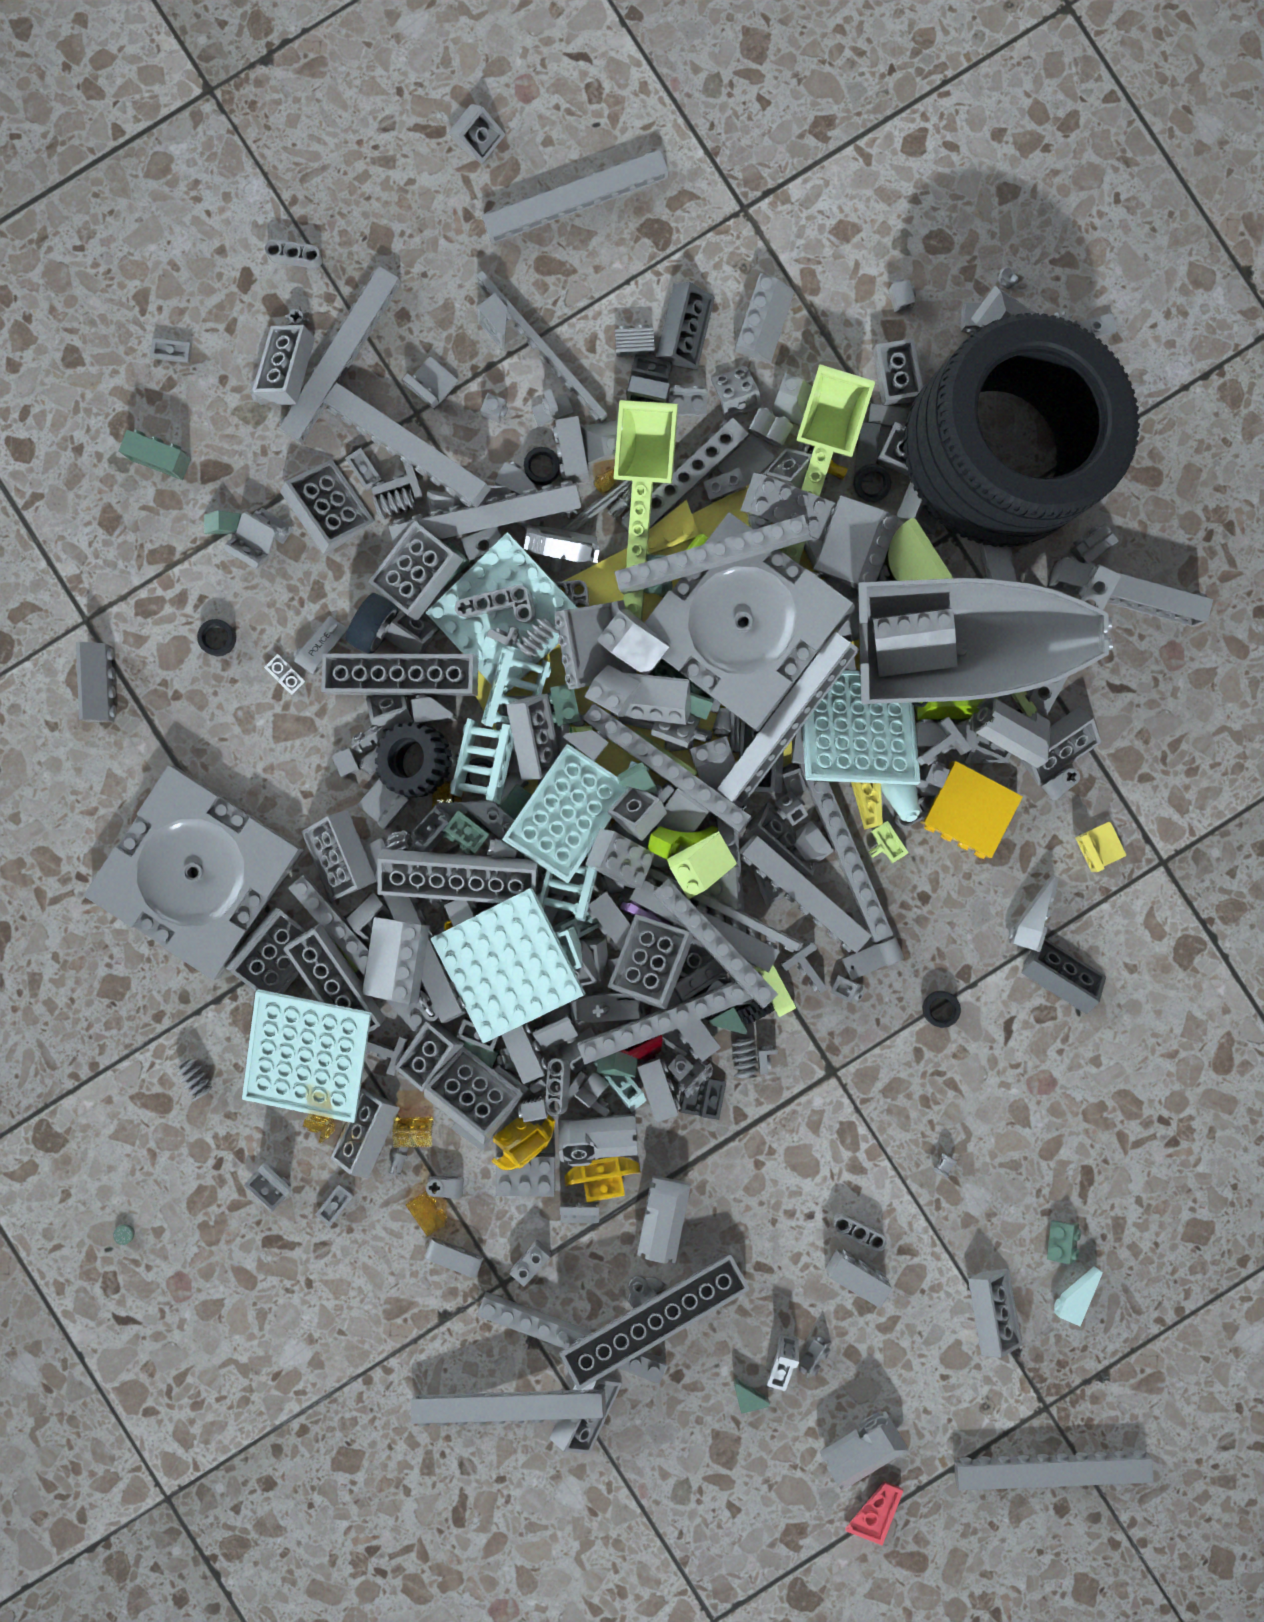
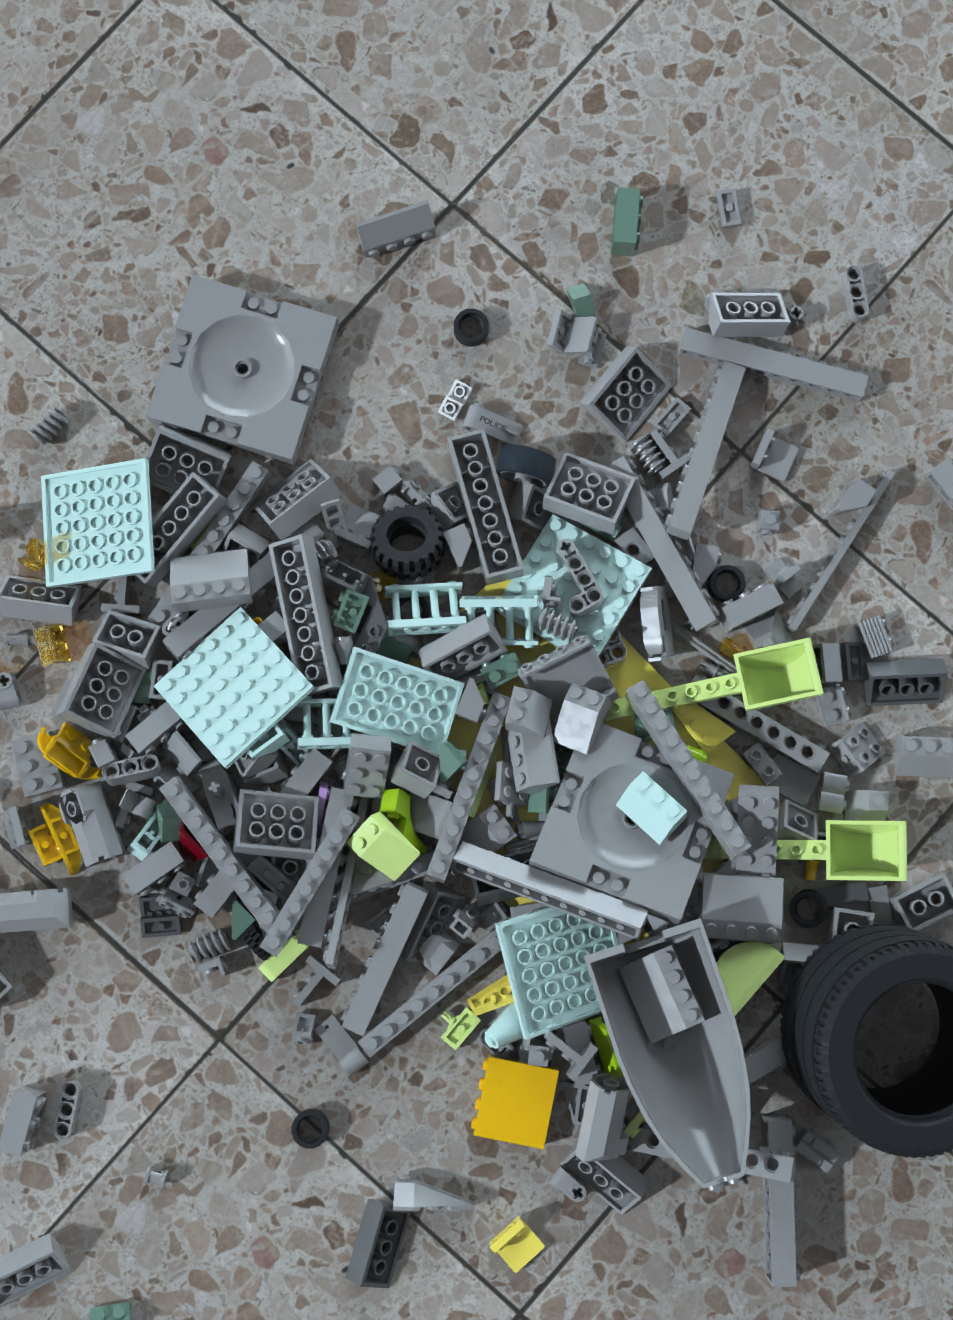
camera: 75 degrees right, 5 degrees down
(365, 824) = (333, 514): none -> light grey slope
(739, 599) = (651, 808): none -> light aqua slope

